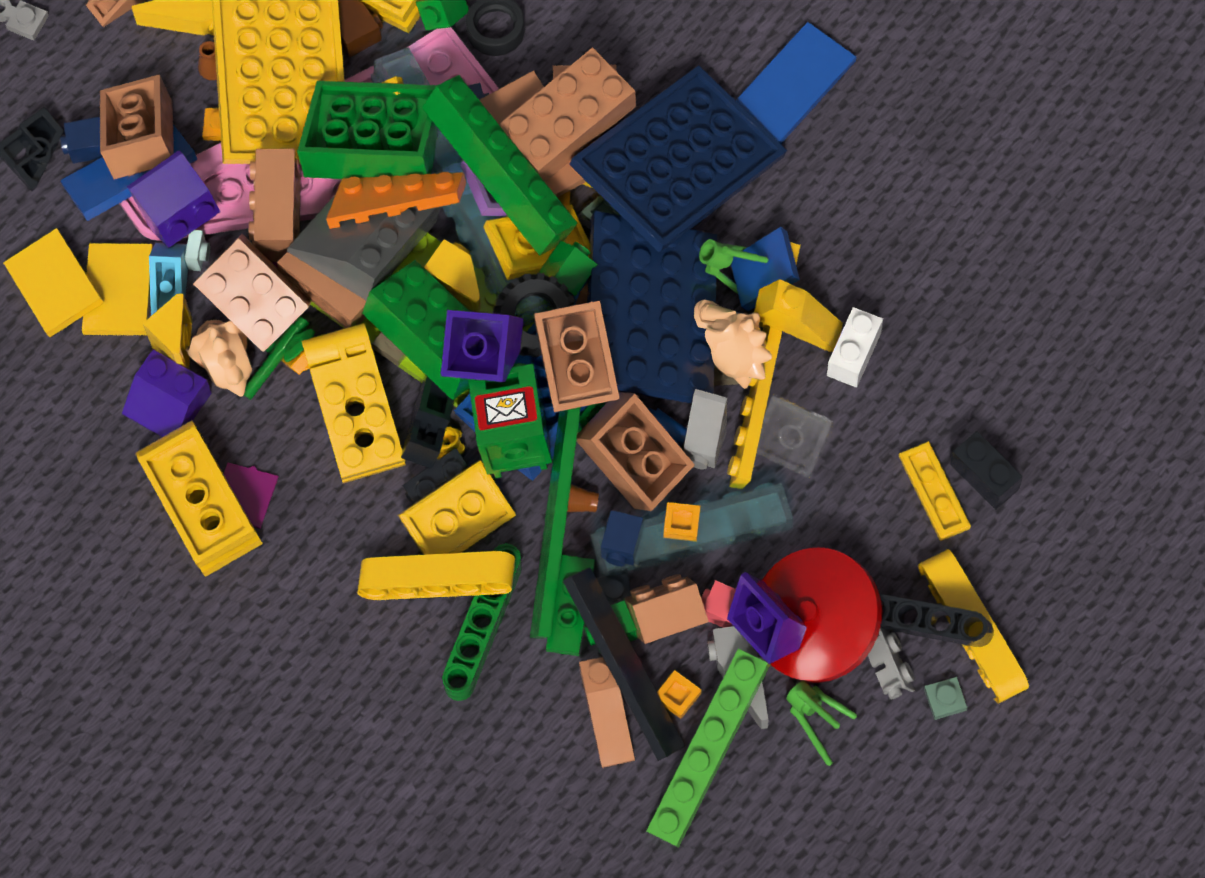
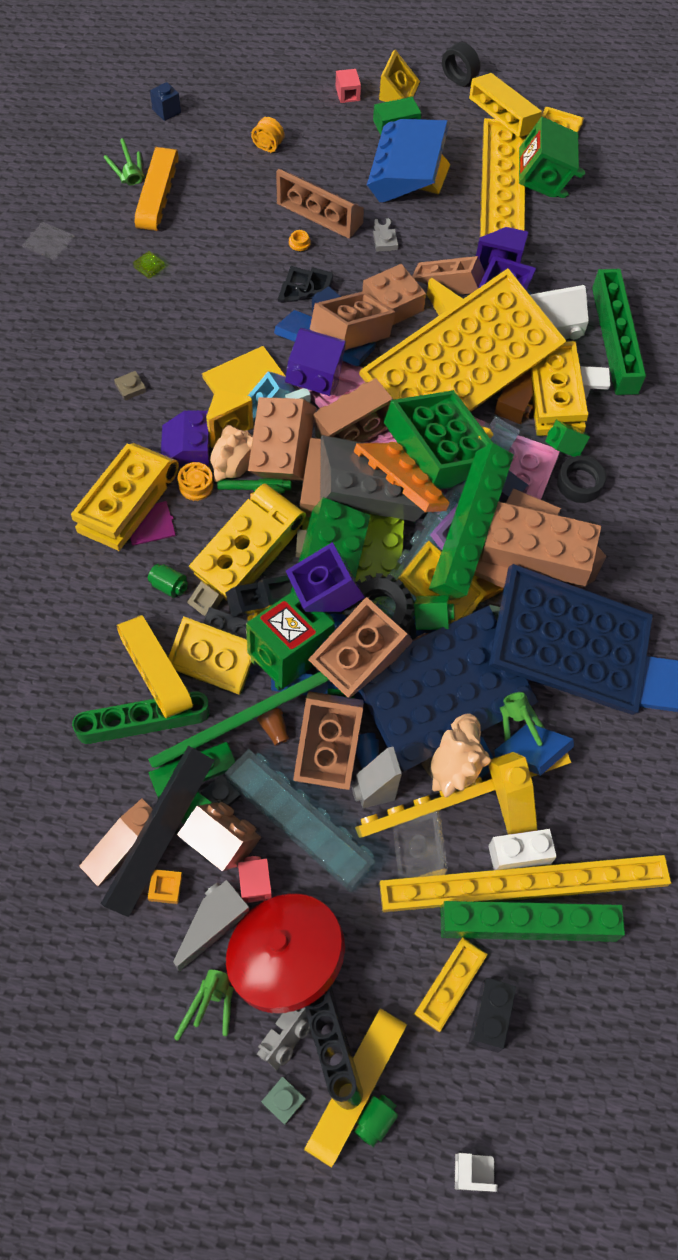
camera: 50 degrees right, 5 degrees down
(41, 418) = (130, 385): none -> dark tan plate
(53, 282) = (223, 341): yellow tile -> none
(120, 56) = (397, 291): none -> nougat brick
(226, 417) = (196, 482): none -> light orange wheel
(335, 512) = (168, 580): none -> green brick
(384, 486) = (205, 597): none -> dark tan plate
(455, 271) = (382, 547): yellow slope -> none
(621, 538) = (253, 770): dark blue brick -> none
(681, 521) = (294, 805): light orange plate -> none
(708, 747) = (130, 934): bright green plate -> none
(765, 619) = (250, 913): dark purple slope -> none
(884, 368) = (525, 883): none -> yellow plate
(924, 382) = (531, 921): none -> green brick
(1013, 625) = (376, 1120): none -> green brick
(1106, 572) = (474, 1173): none -> white panel

